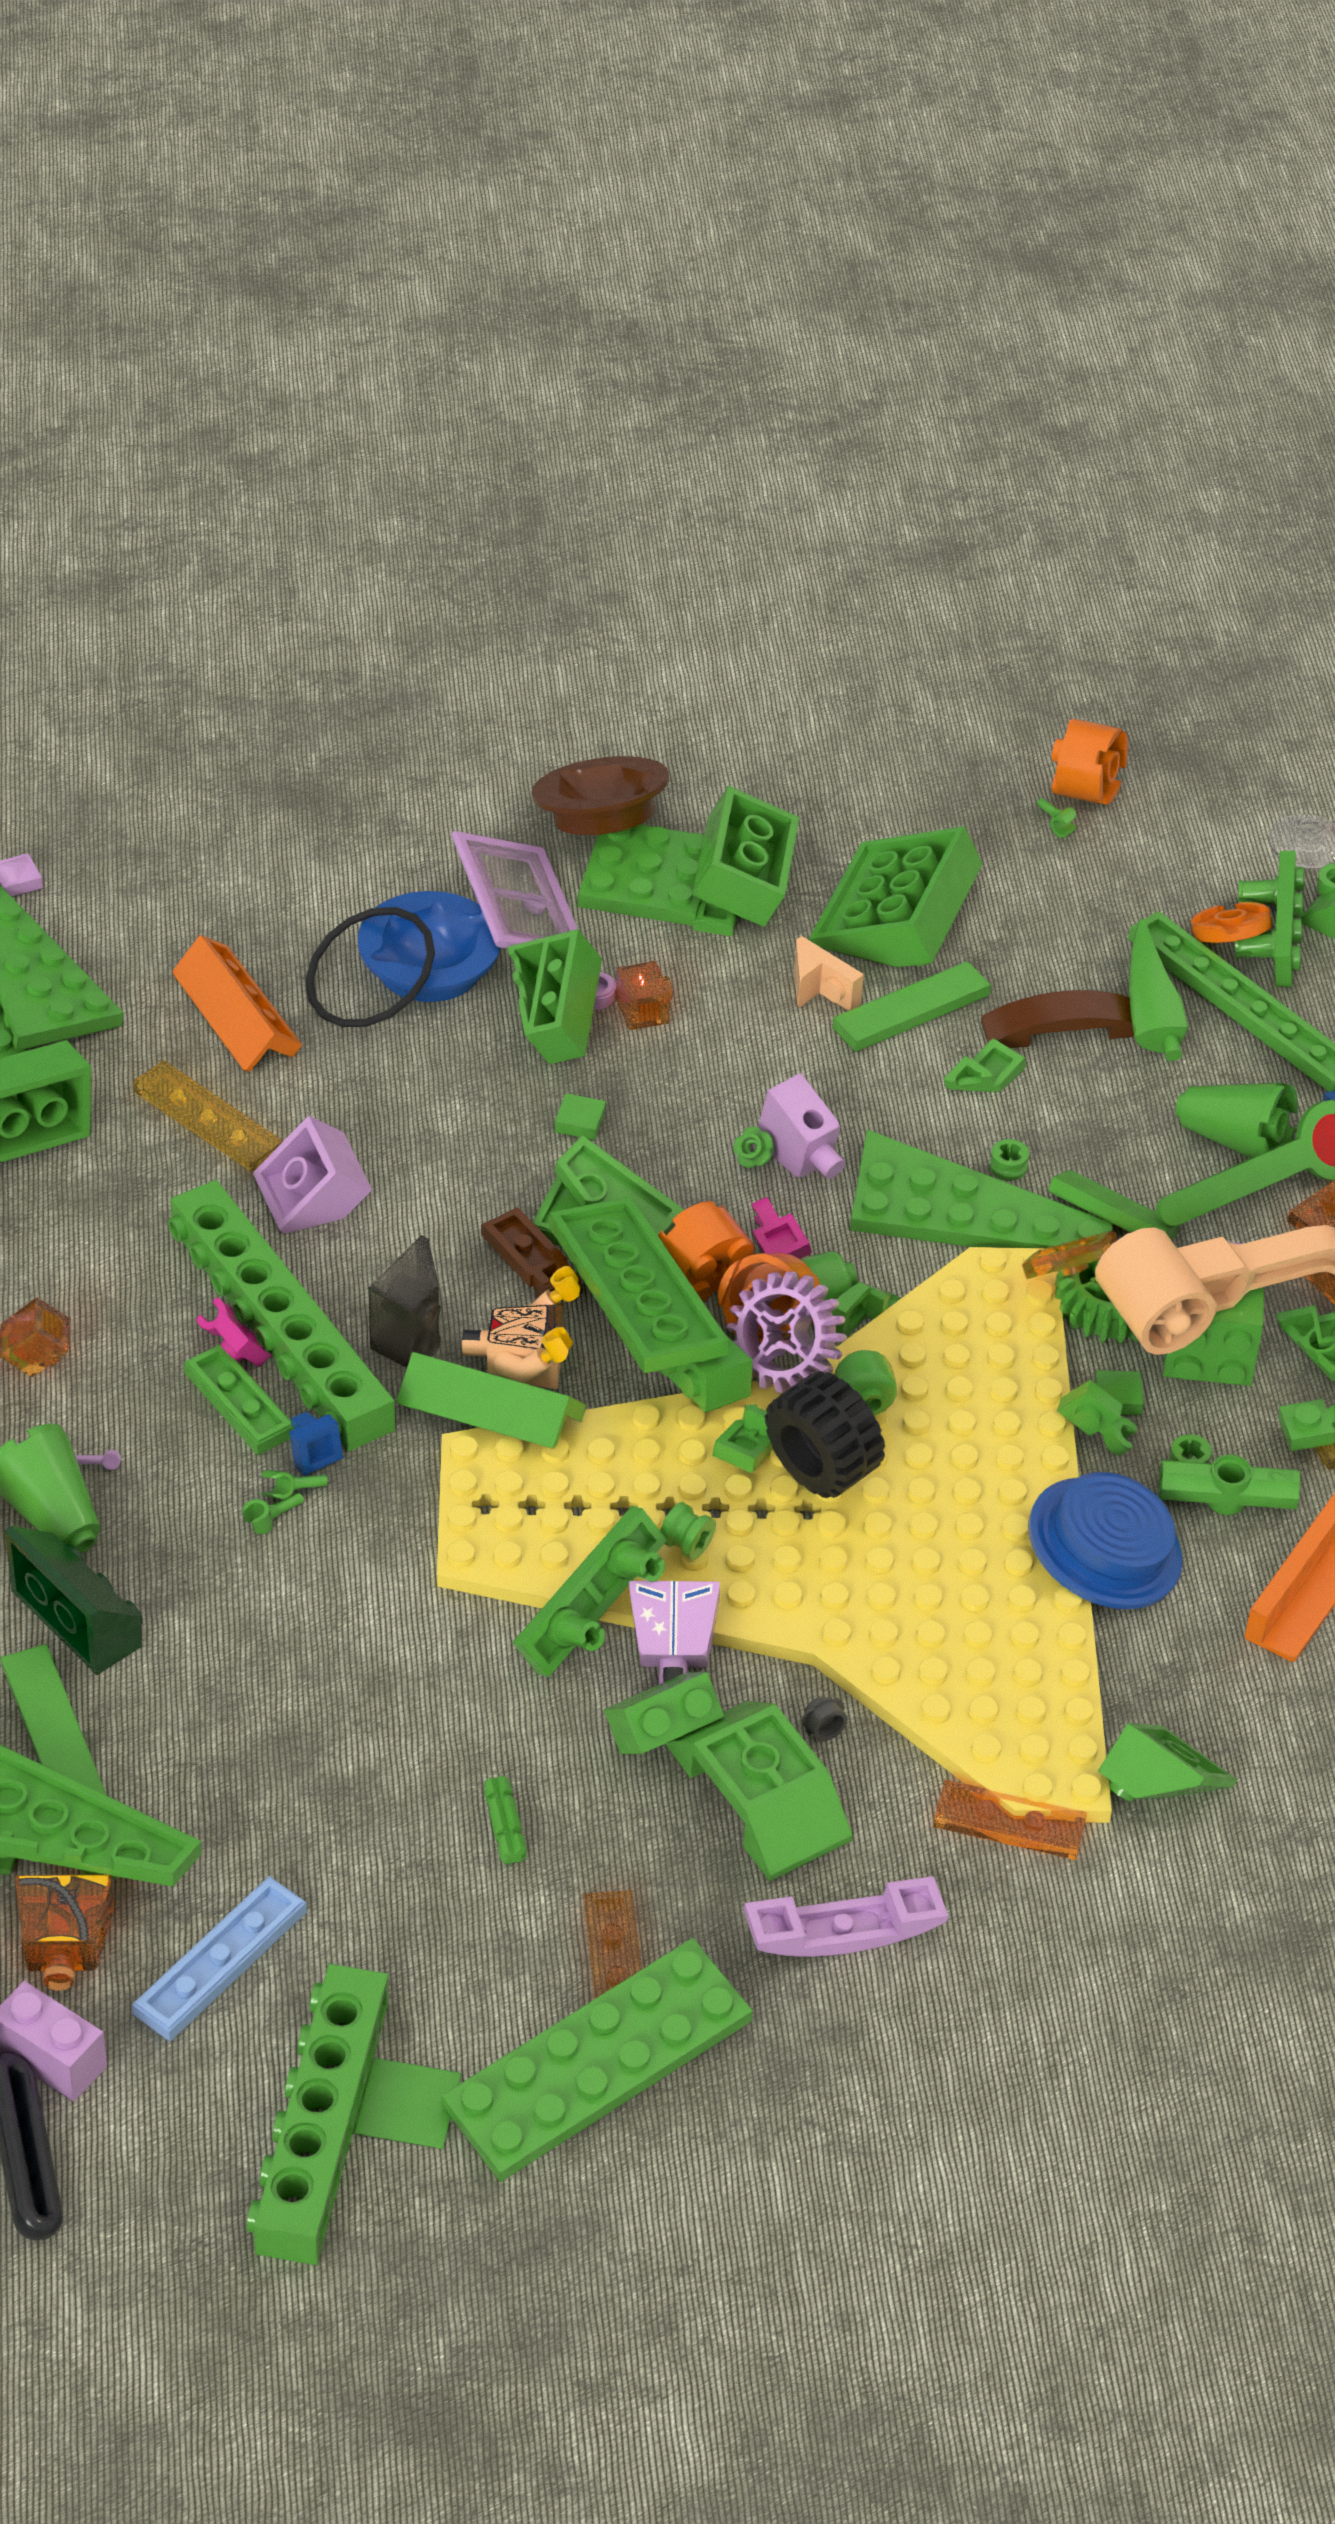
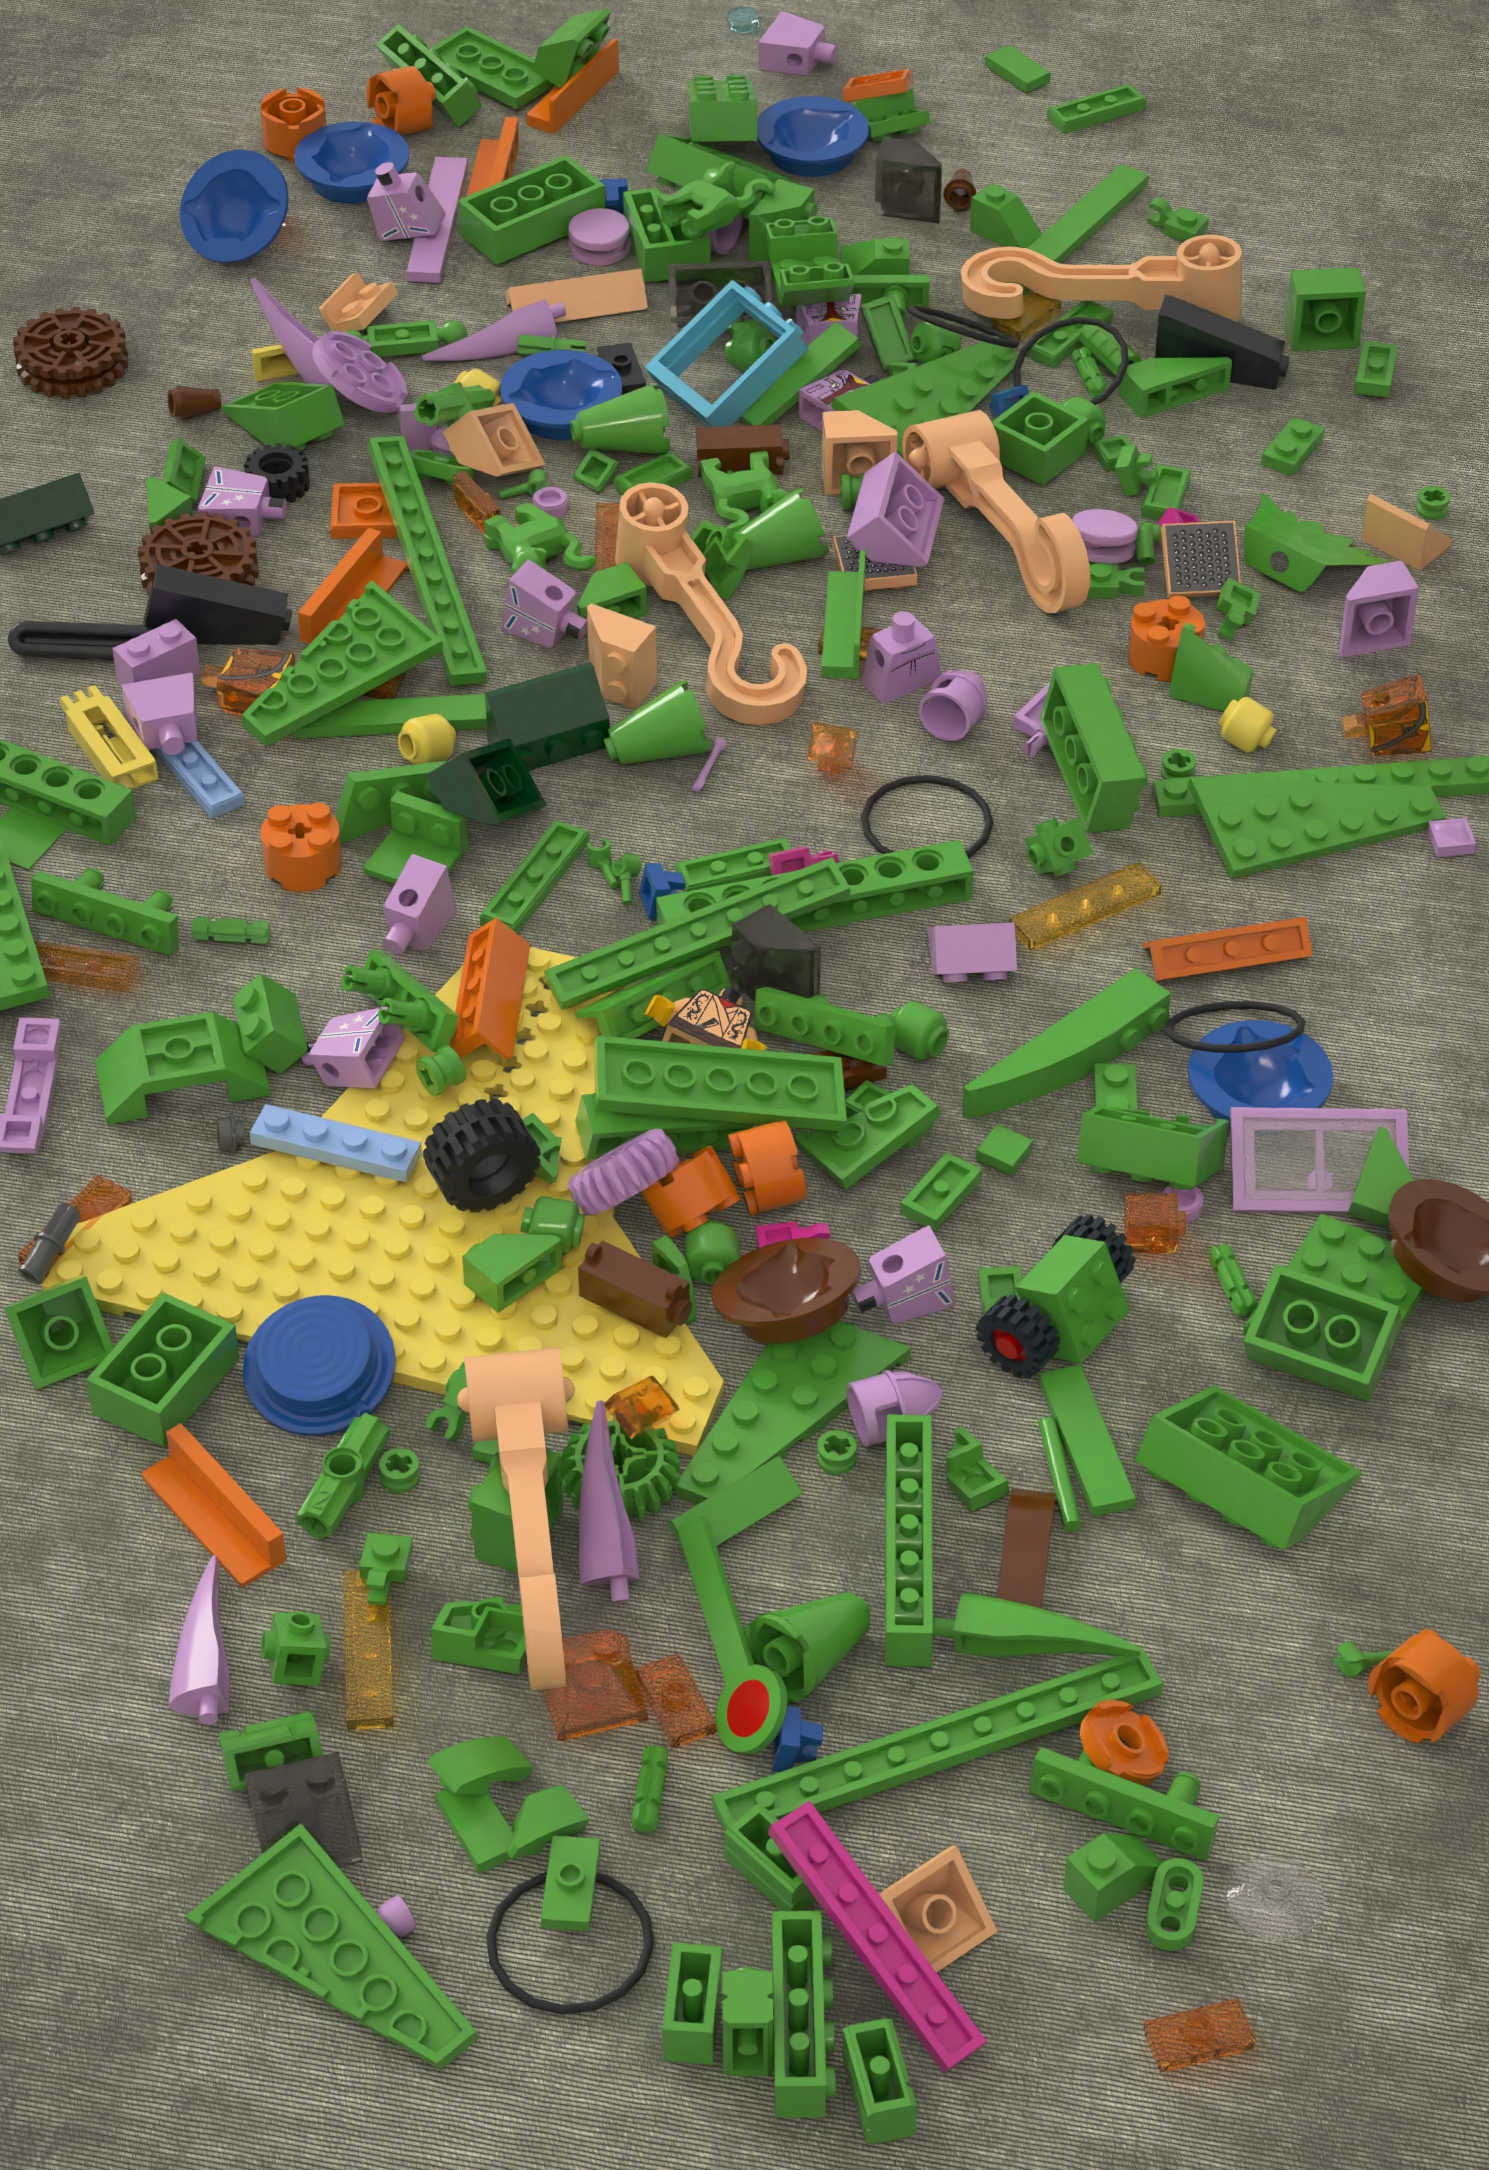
camera: 110 degrees right, 0 degrees up
(106, 1314) = (925, 779): none -> black piece
(121, 1714) = (427, 739): none -> light yellow head
(142, 1133) = (1057, 846): none -> bright green brick
(169, 1980) = (163, 711): none -> lavender torso
(218, 1609) = (486, 784): none -> dark green slope
(219, 2050) = (116, 759): none -> light yellow hinge
(240, 1706) = (368, 794): none -> bright green wing
(315, 1567) = (536, 876): none -> bright green tile
(317, 1675) = (420, 830): none -> bright green bracket
(356, 1777) = (301, 846): none -> orange brick
(405, 1366) = (691, 934): none -> bright green plate
(427, 1082) = (1070, 1048): none -> bright green slope
(431, 1631) = (418, 906): none -> lavender torso
(453, 1193) = (920, 1030): none -> bright green head
(478, 1053) = (1115, 1085): none -> bright green plate
(489, 1259) = (825, 1025): none -> bright green plate
(533, 1959) = (87, 906): none -> bright green plate
(537, 1531) = (491, 990): none -> orange panel
(540, 847) = (1379, 1180): none -> bright green slope
(661, 1144) = (940, 1191): none -> bright green plate
(681, 942) = (1232, 1280): none -> bright green axle
(753, 1084) = (997, 1282): none -> bright green slope
(782, 1011) = (1064, 1301): none -> brick
(816, 1604) = (336, 1143): none -> light blue plate
(823, 973) = (1142, 1365): light nougat slope -> none
(866, 1192) = (787, 1289): none -> reddish brown piece
(916, 1306) = (634, 1288): none -> reddish brown brick
(934, 1406) = (510, 1266): none -> bright green slope
(951, 1115) = (886, 1394): none -> lavender helmet
(953, 1018) = (1059, 1474): none -> bright green bar
(1068, 1804) = (49, 1243): none -> dark grey axle
(1098, 1076) = (908, 1541): none -> bright green brick
(1184, 1652) = (163, 1369): none -> bright green brick

